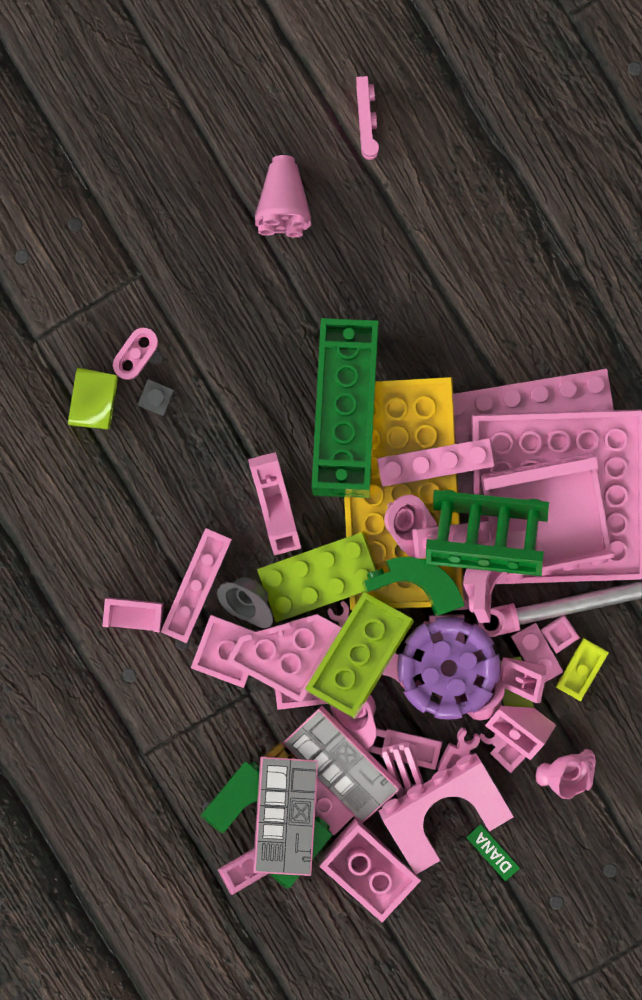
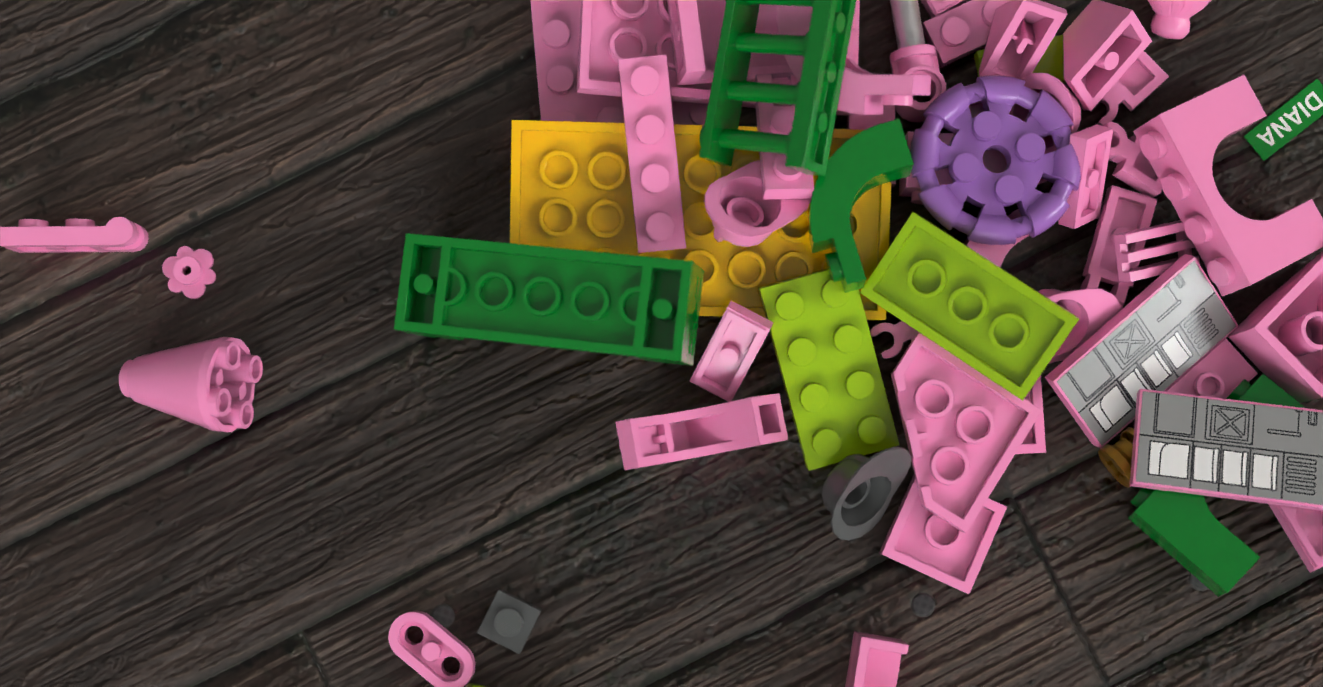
camera: 85 degrees left, 5 degrees down
(196, 585) = (830, 575): bright pink plate -> none
(324, 517) = (731, 351): none -> bright pink plate
(343, 190) = (201, 274): none -> bright pink plant
(453, 726) = (1092, 151): none -> bright pink plate

